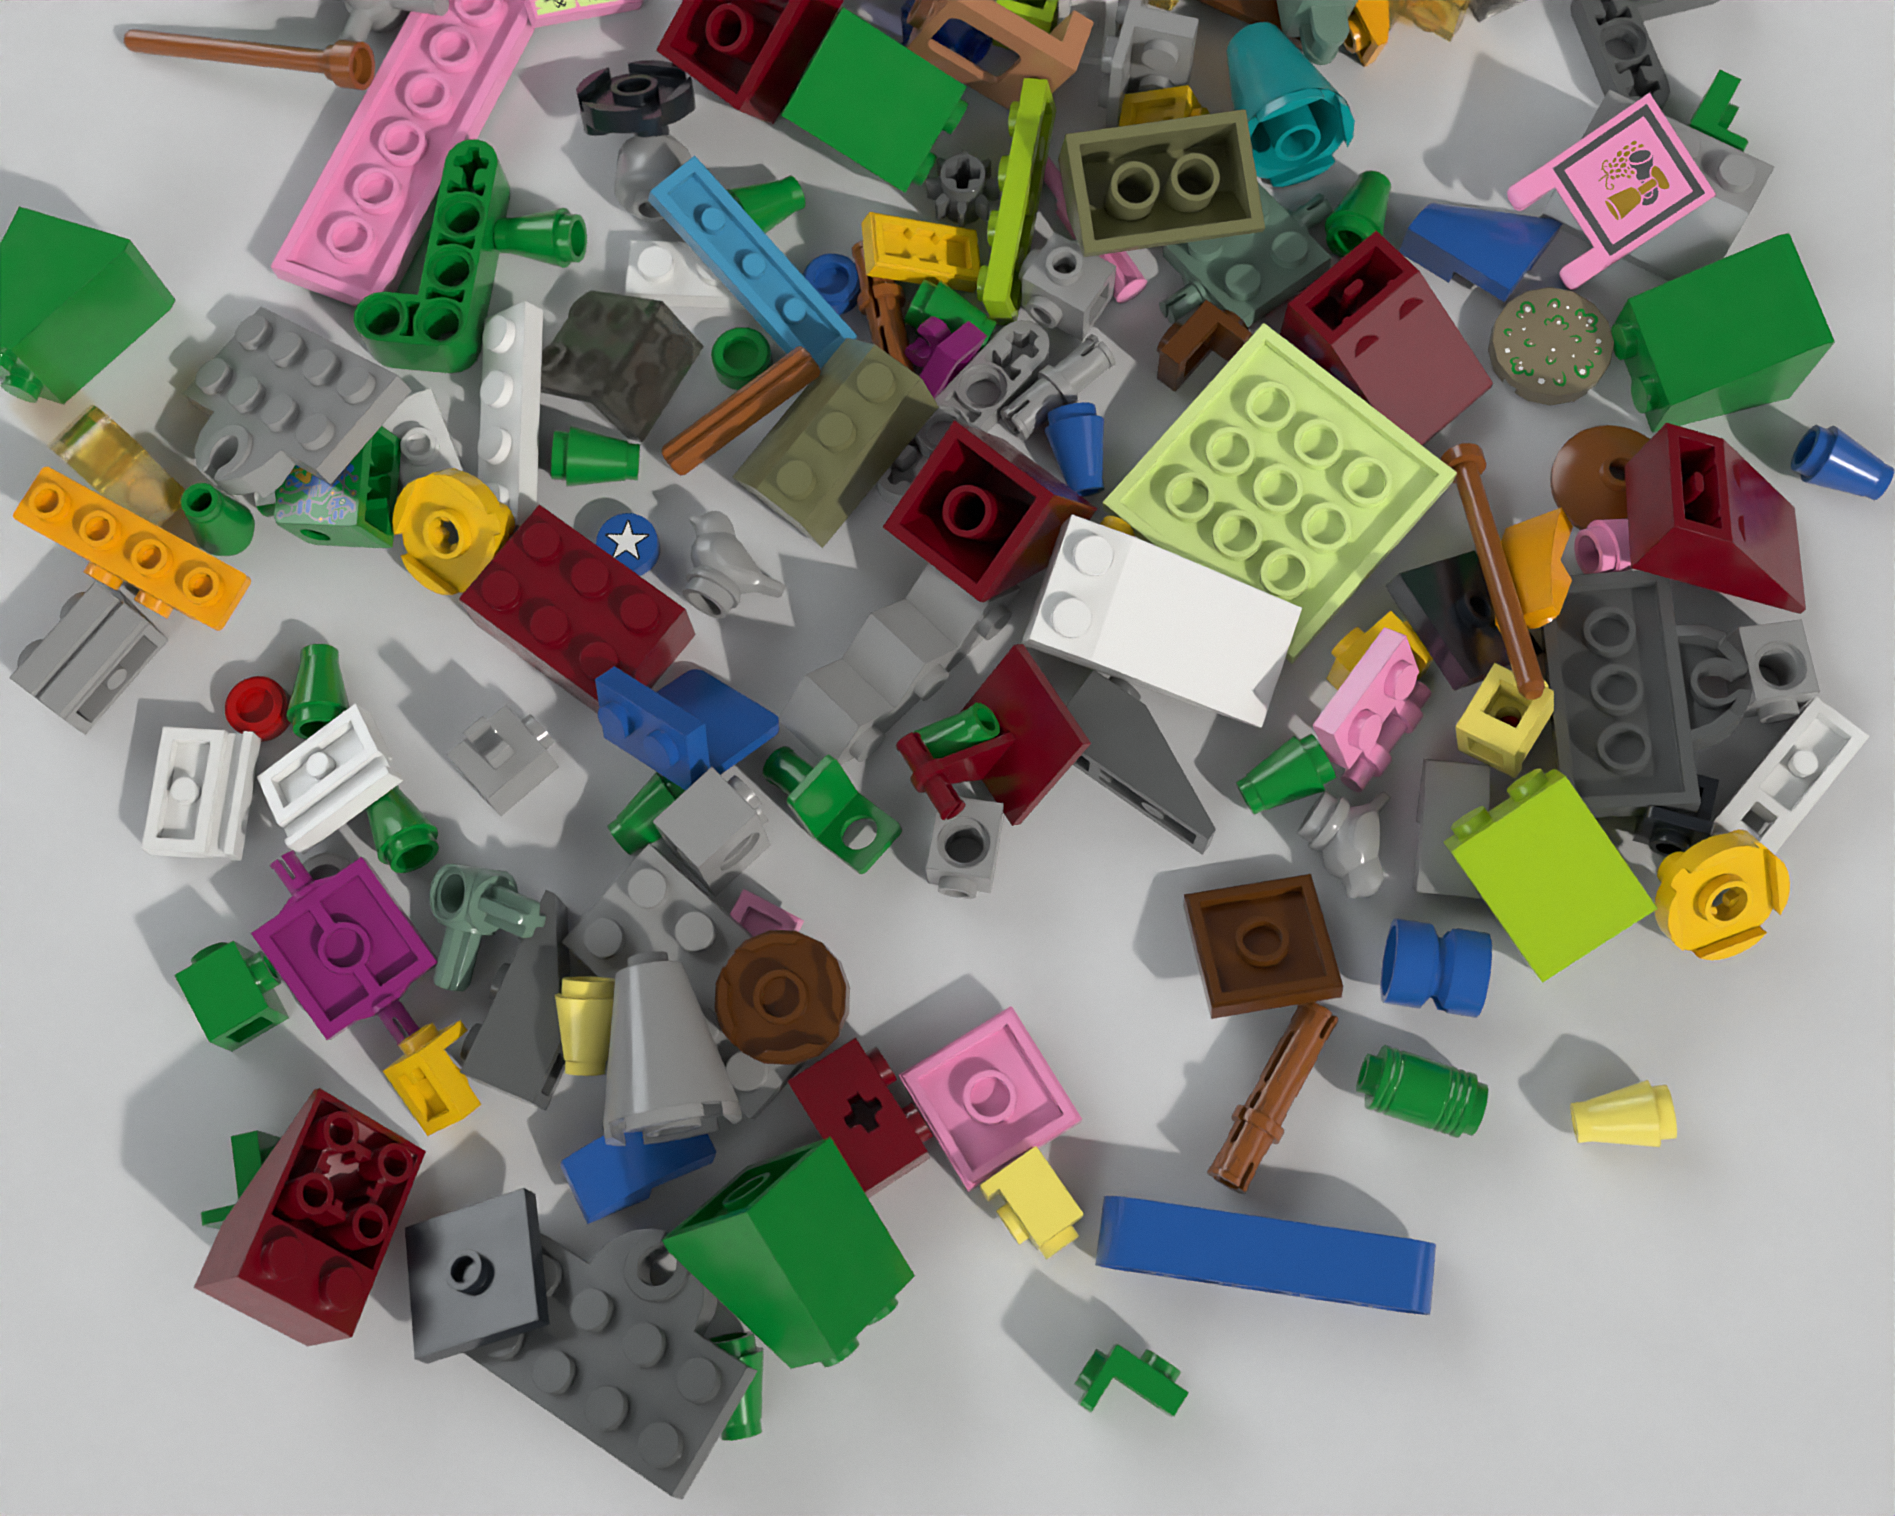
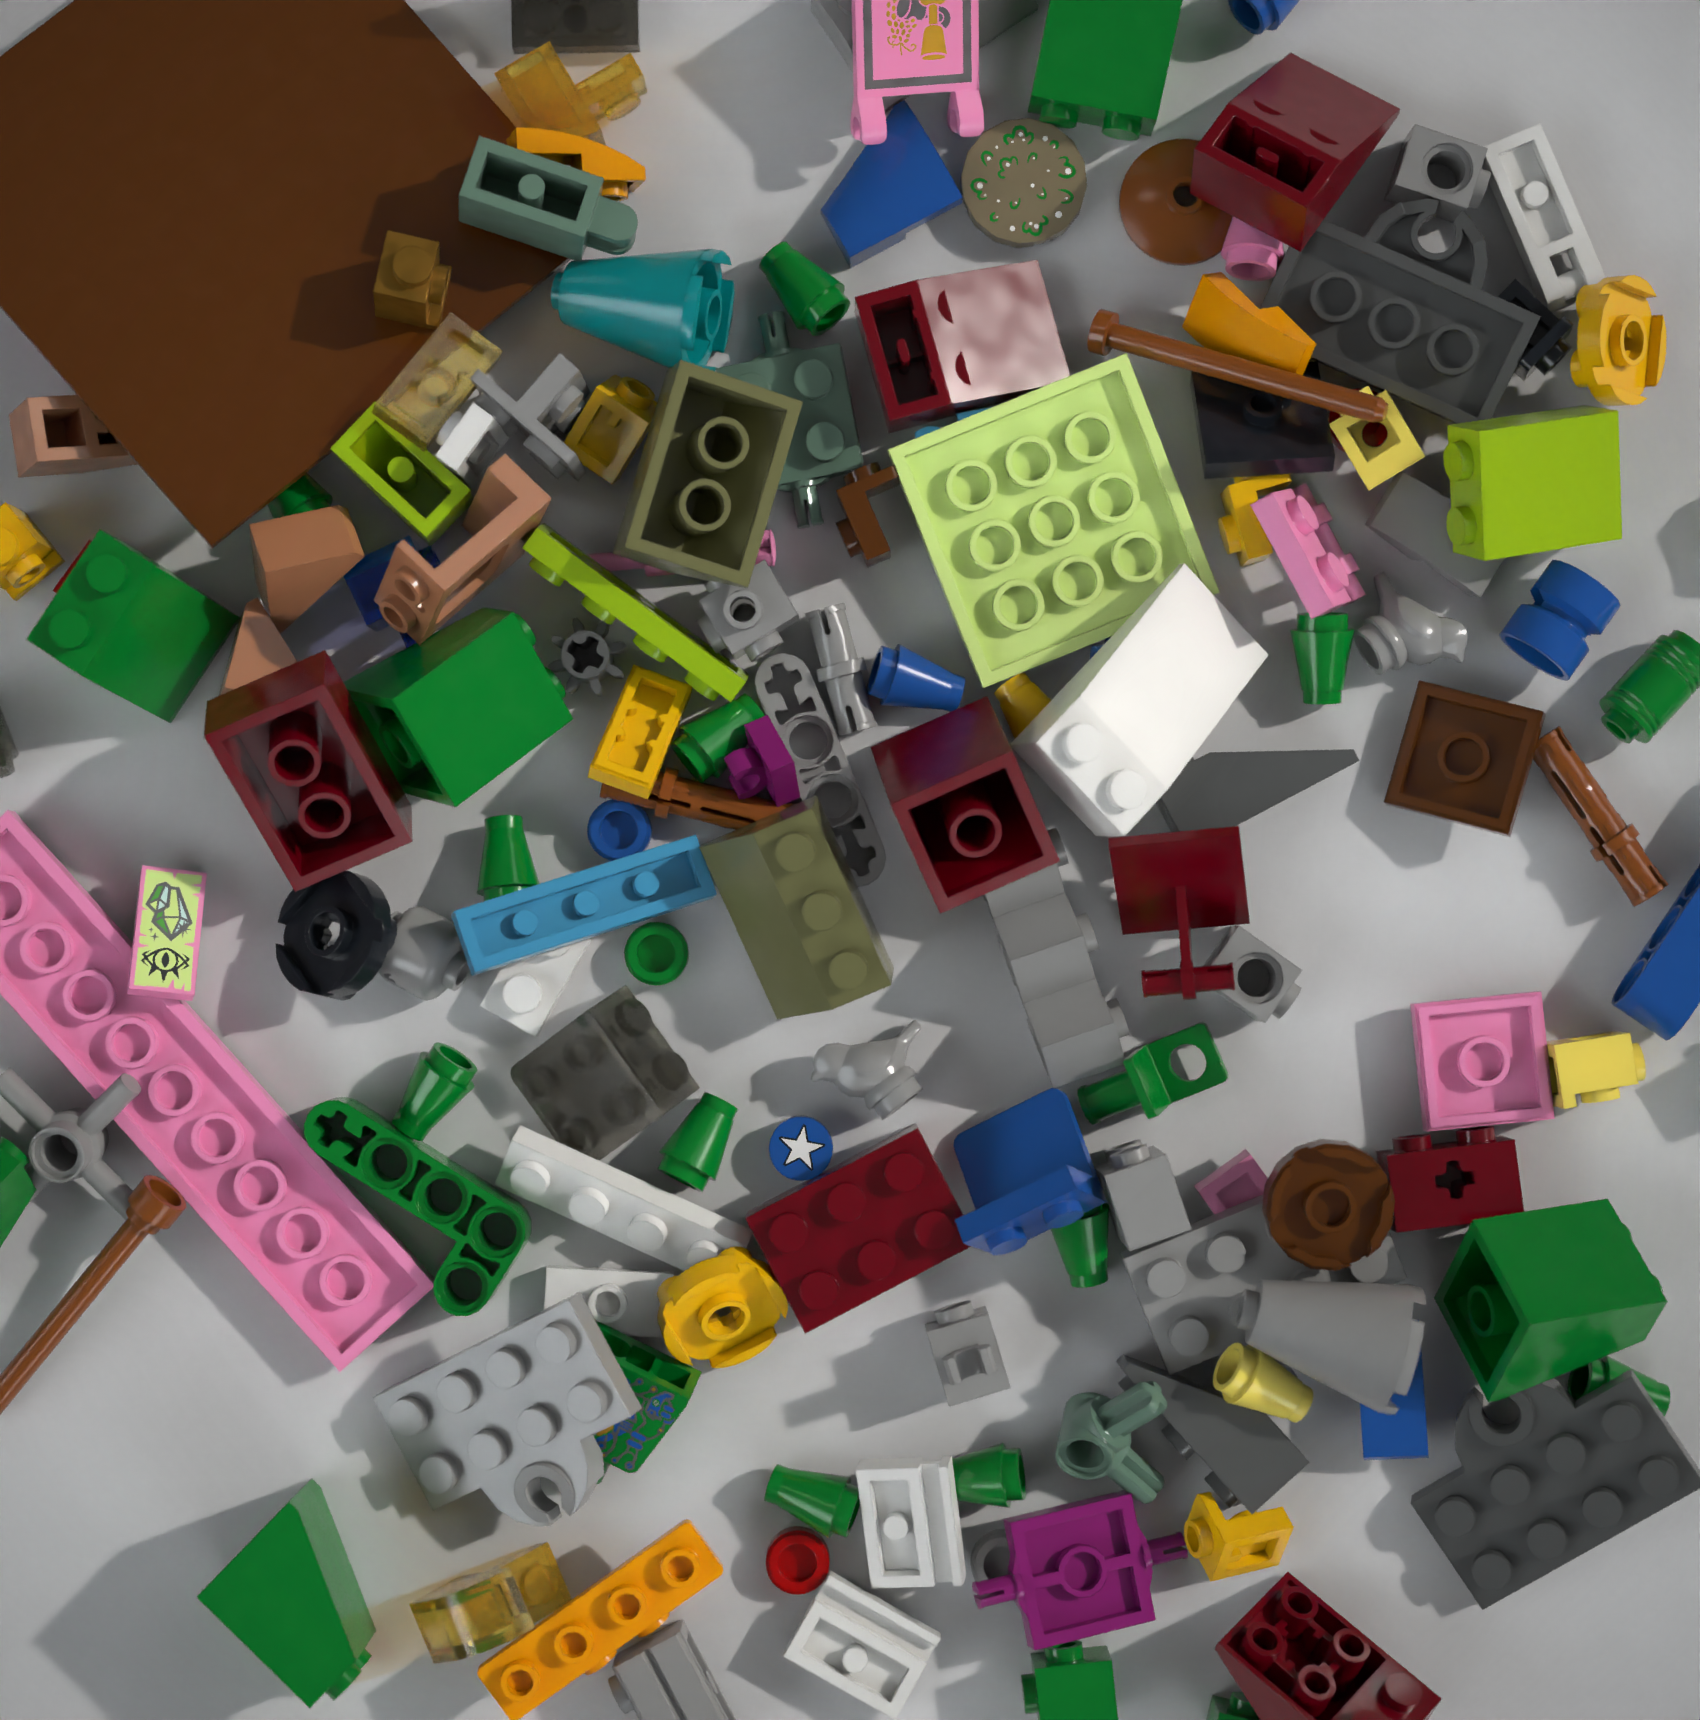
camera: 70 degrees left, 15 degrees up
(217, 521) = (606, 1514): green cone -> none
(476, 1276) = (1429, 1572): plate -> none
(740, 410) = (723, 982): dark orange axle -> none
(960, 731) = (1152, 938): green cone -> none

